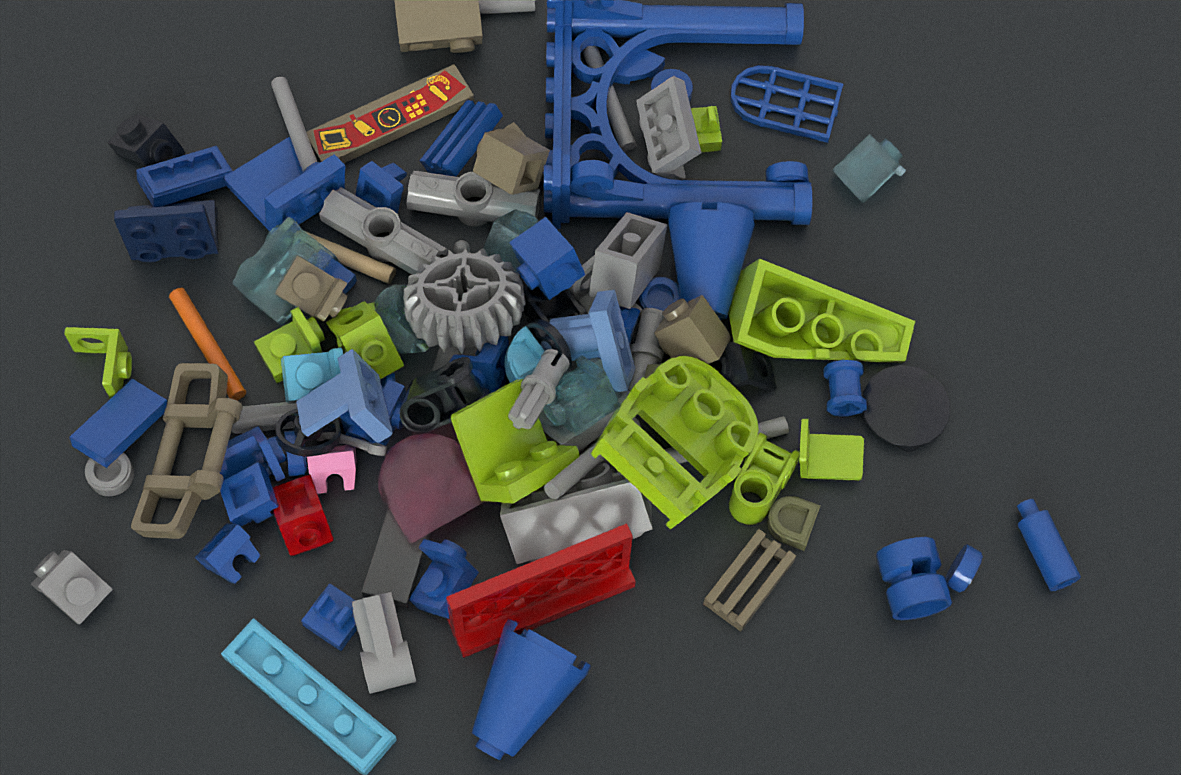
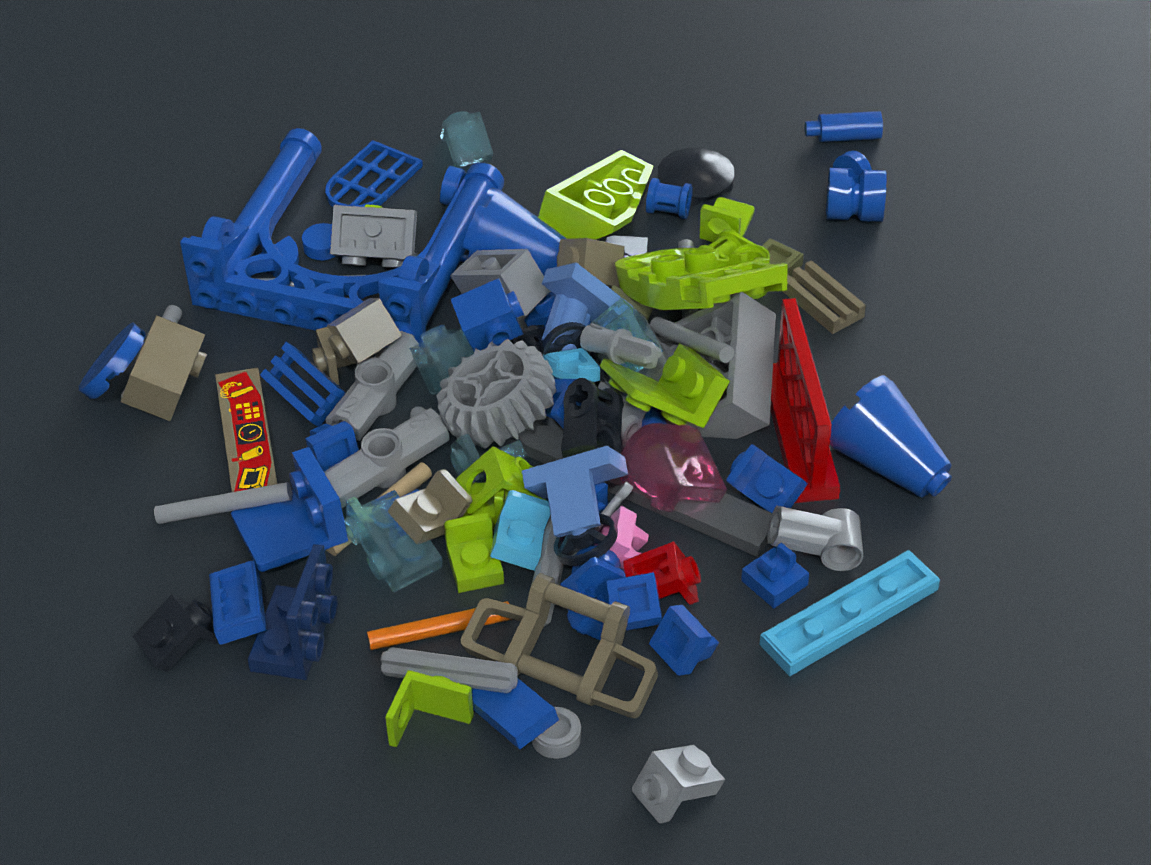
camera: 70 degrees left, 20 degrees down
(141, 364) = (468, 671): none -> light grey axle

